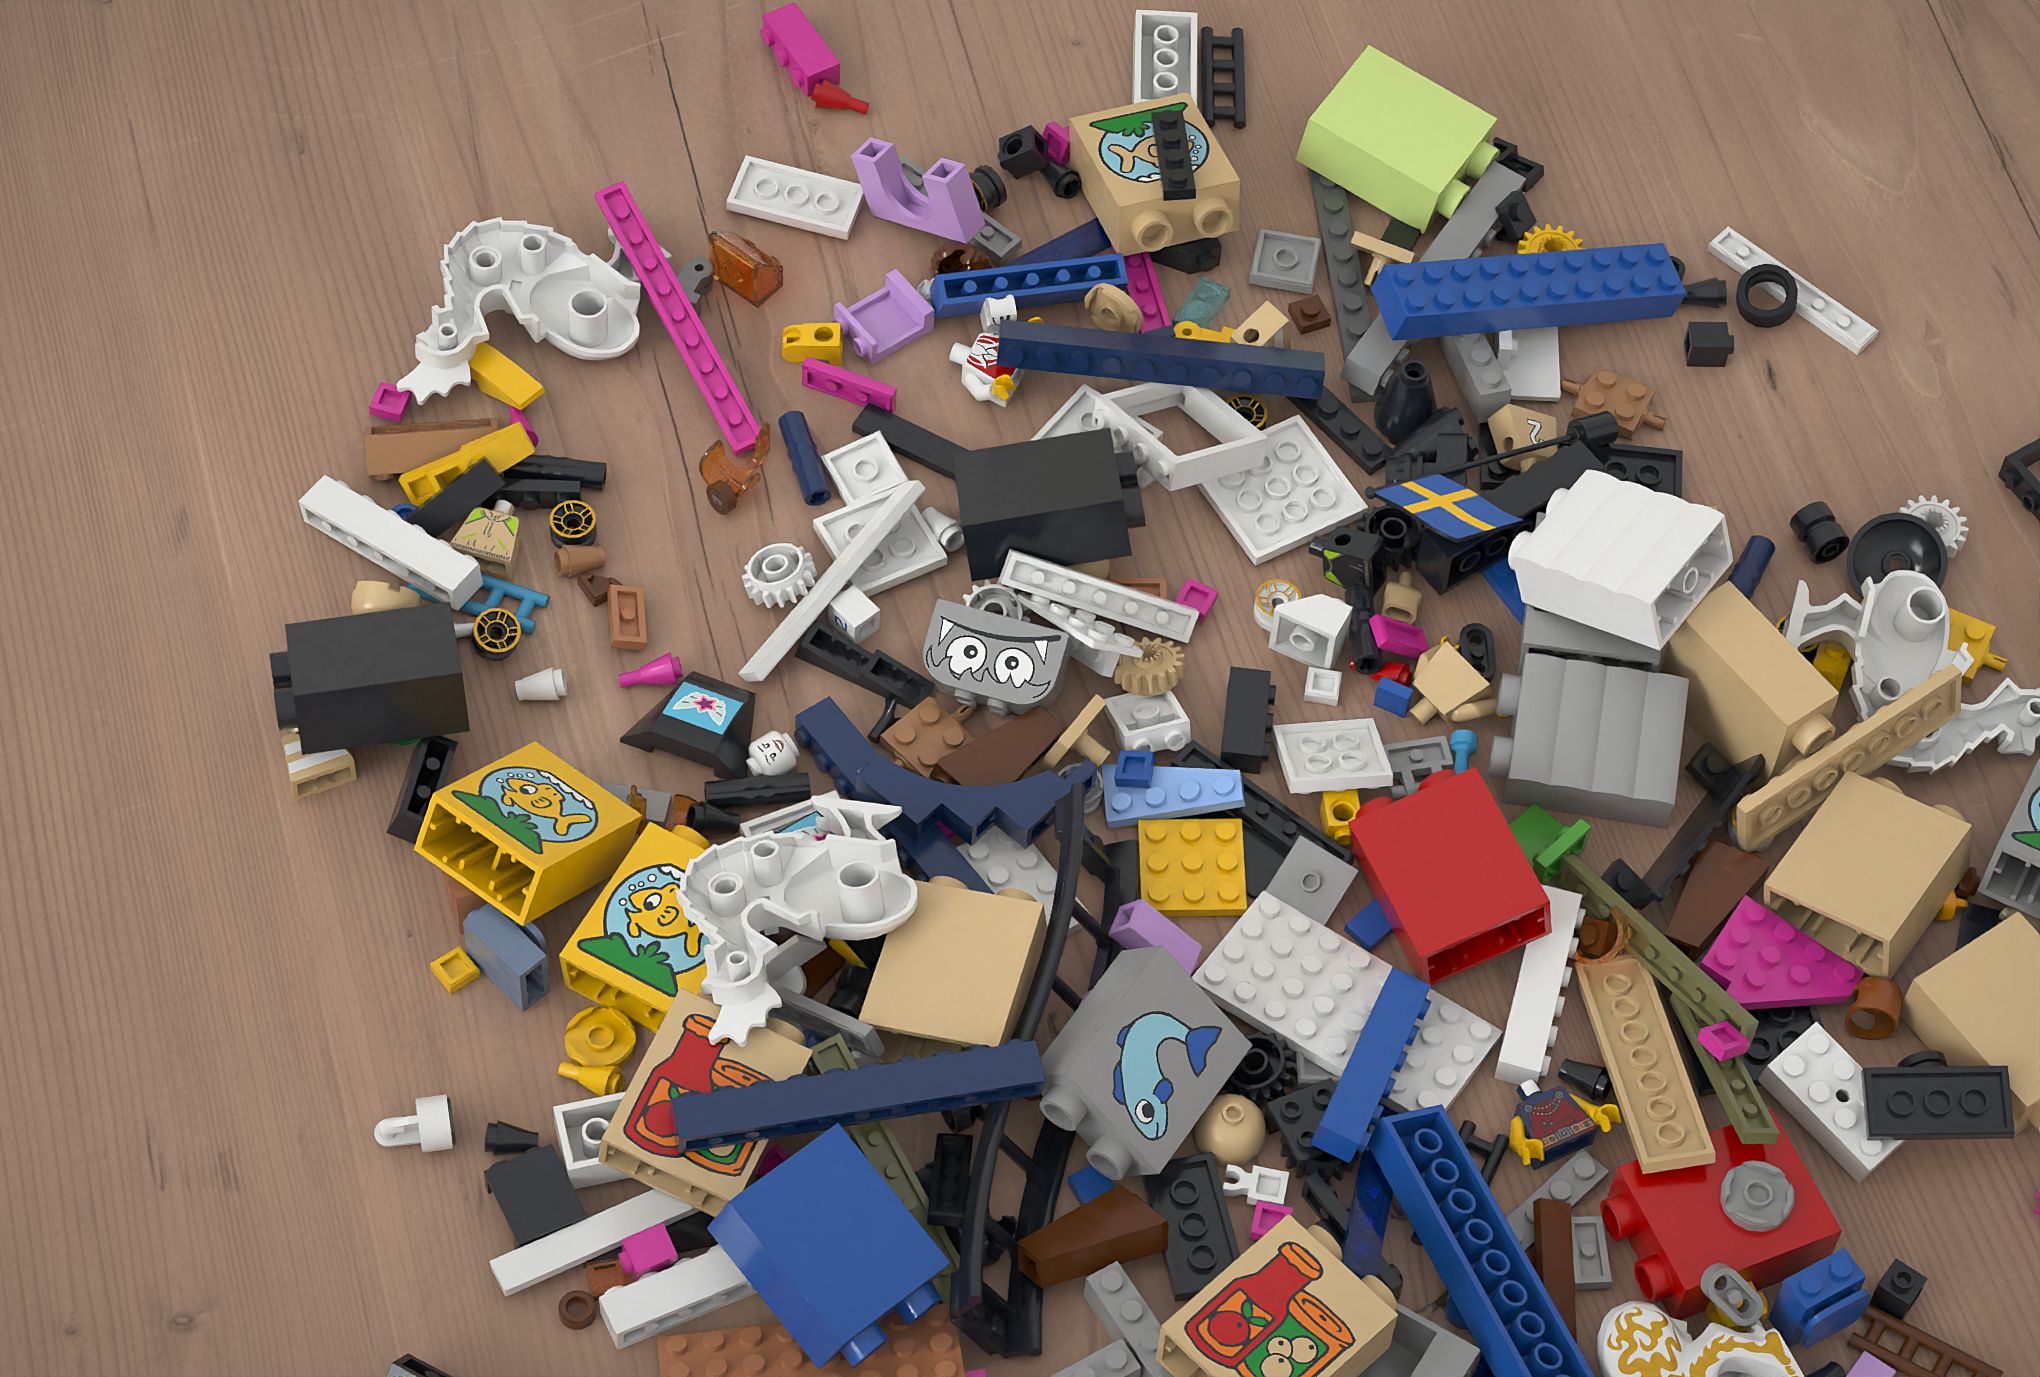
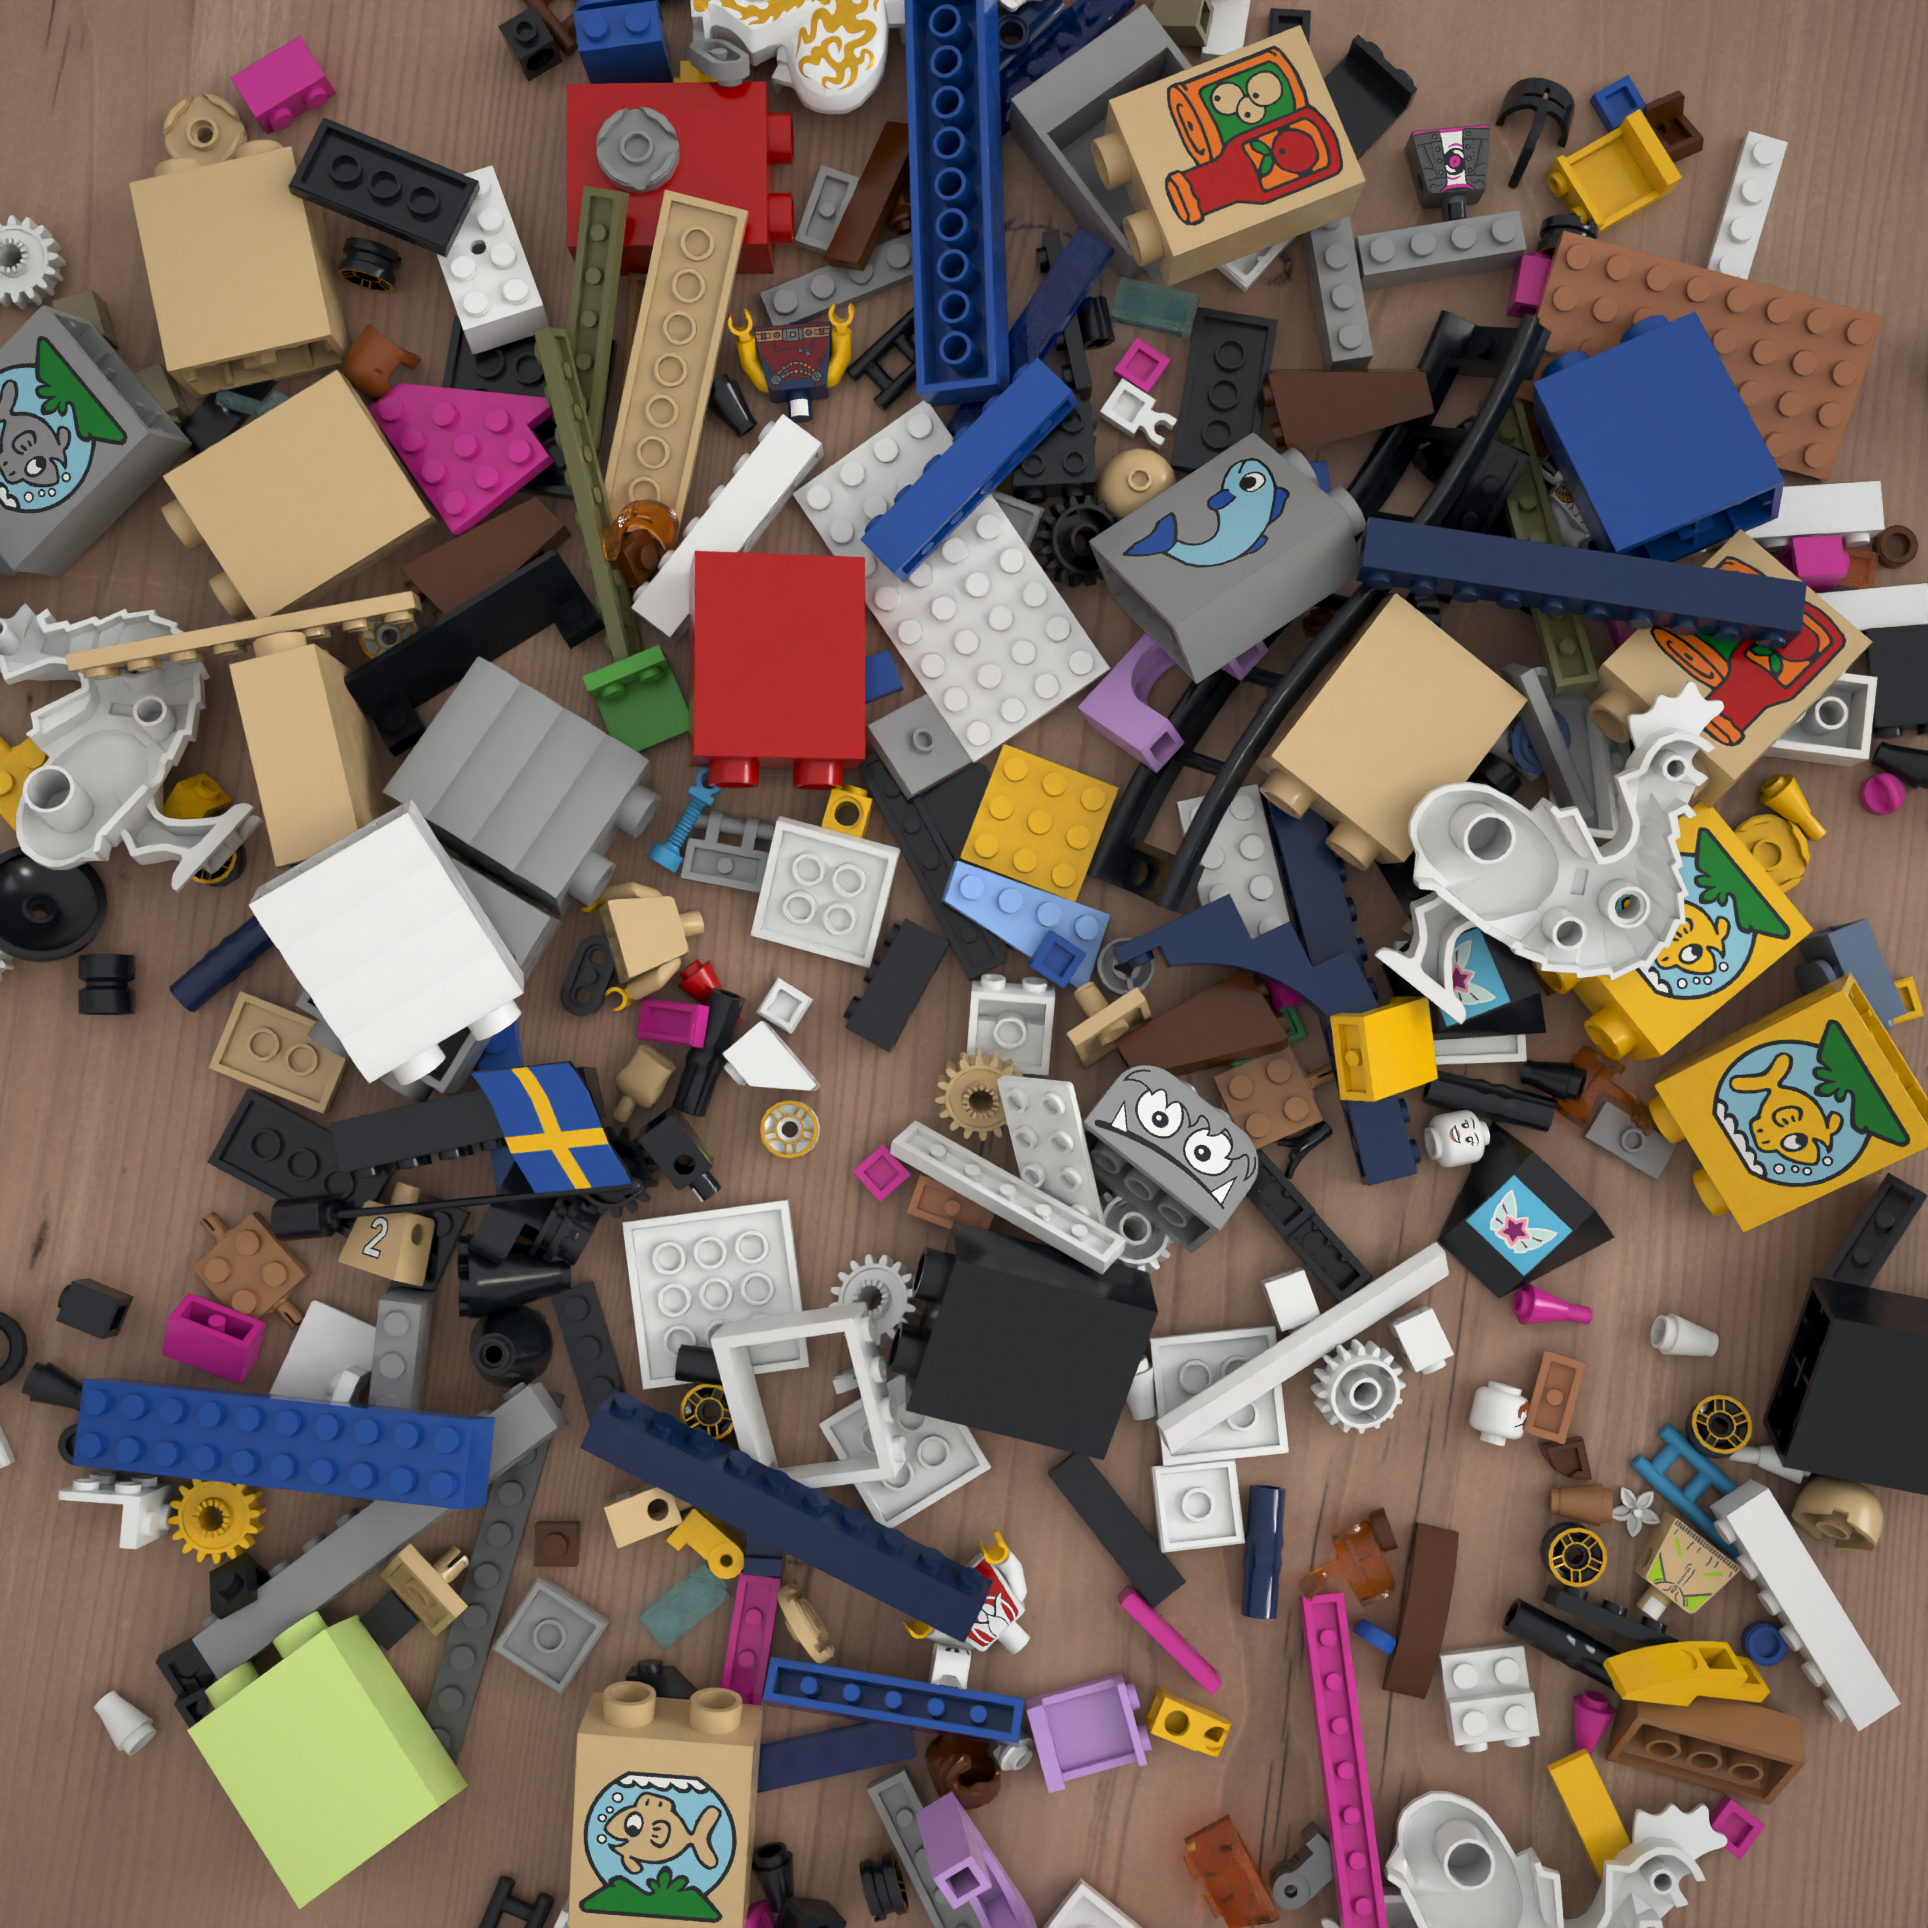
camera: 150 degrees left, 30 degrees up
(457, 498) = (1713, 1631): black tile -> none
(521, 1112) = (1882, 794): none -> dark pink tile
(535, 571) = (1635, 1510): none -> white plant
(601, 424) = (1488, 1696): none -> white plate
(665, 595) = (1499, 1412): none -> white head
(671, 464) = (1423, 1611): none -> reddish brown slope
(700, 432) = (1375, 1636): none -> blue tile
(744, 621) = (1421, 1340): none -> white brick
(860, 762) = (1384, 1049): none -> yellow panel
(1165, 516) = (885, 1279): none -> white gear
(1173, 155) = (644, 1809): black plate -> none
(1274, 430) = (697, 1365): none -> black piece
(1393, 697) = (714, 952): blue tile -> none
(1543, 129) = (125, 1723): none -> white cone
(1602, 232) = (143, 1500): none -> white bracket
(1614, 349) = (213, 1338): none -> dark pink brick
(1723, 1040) = (581, 333): dark pink plate -> none
(1942, 948) = (249, 405): none -> clear light blue bar

